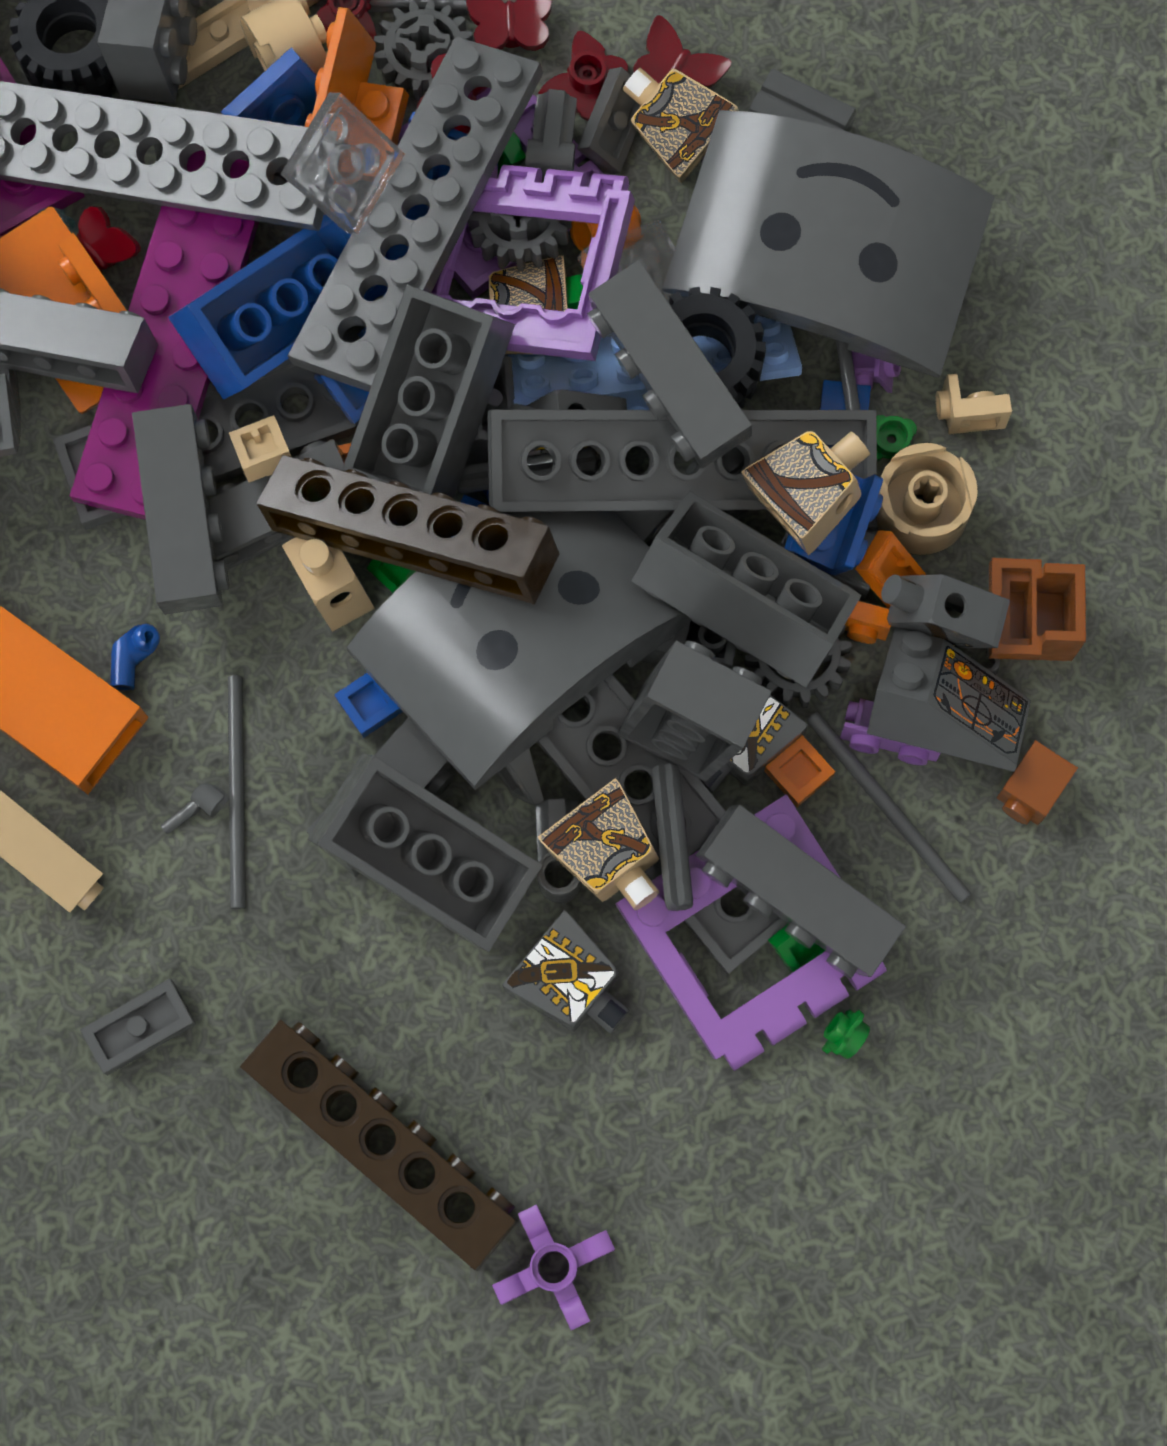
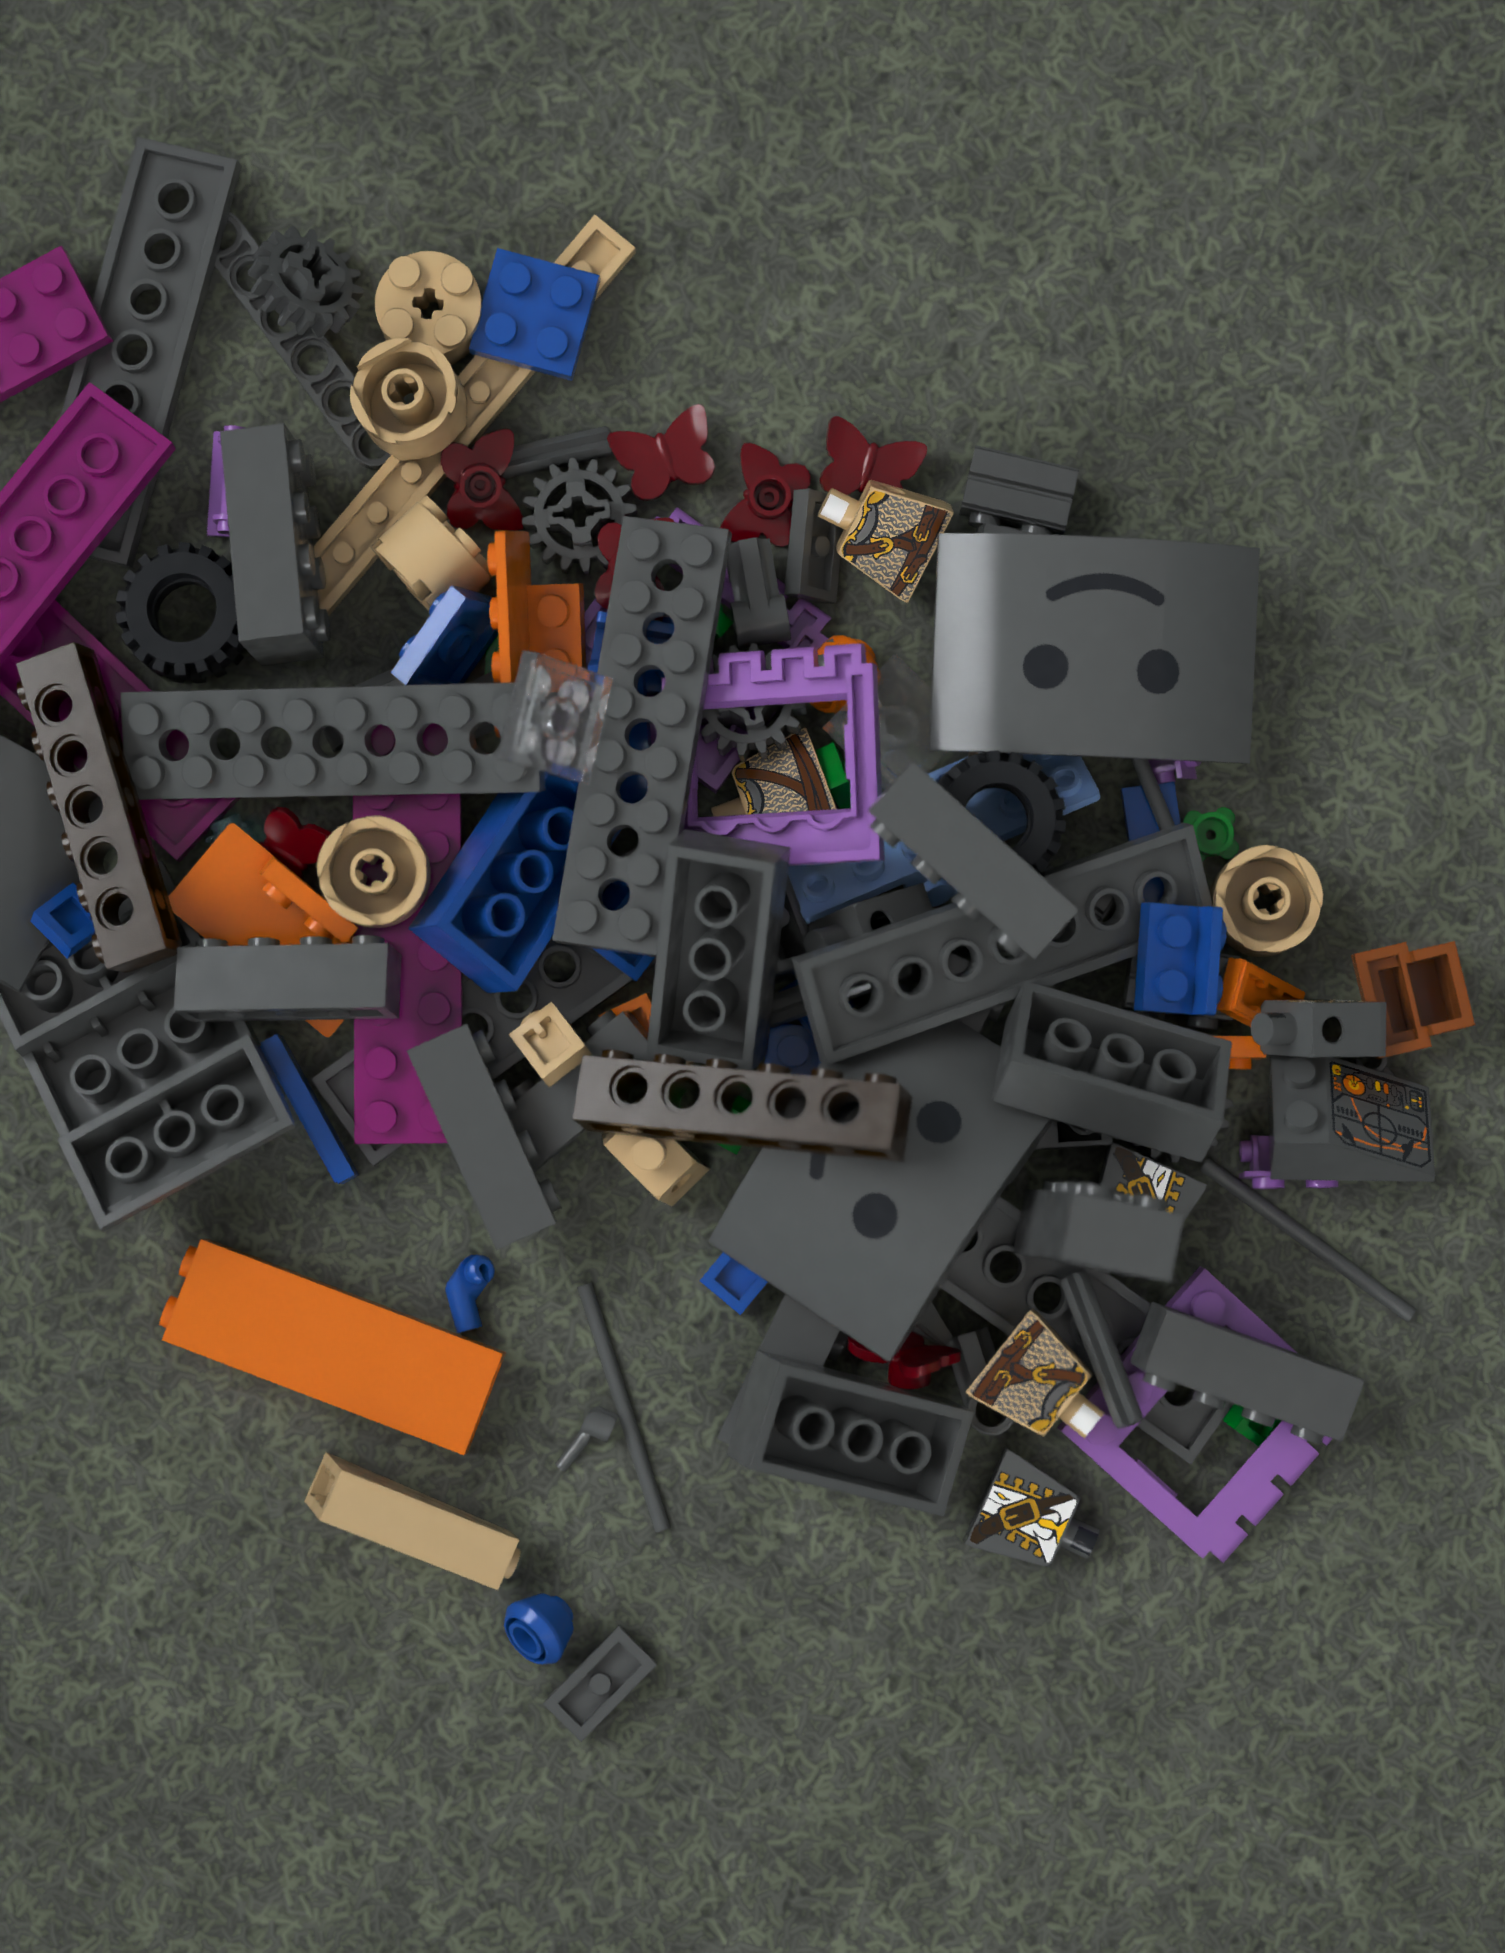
camera: 15 degrees left, 10 degrees up
(43, 464) = (309, 1109): none -> blue tile
(99, 960) = (539, 1627): none -> blue cone
(167, 240) = (365, 842): none -> tan brick
(273, 1068) = (1002, 1806): dark brown brick -> none
(497, 807) = (912, 1363): none -> dark red animal
(530, 1278) = (1065, 1835): medium lavender pin -> none
(799, 771) = (1210, 1230): orange plate -> none
(808, 485) = (1148, 942): torso -> none
(846, 1034) = (1326, 1493): green plate -> none
(974, 413) = (1297, 781): tan bracket -> none
(1035, 784) = (1458, 1182): dark orange brick -> none

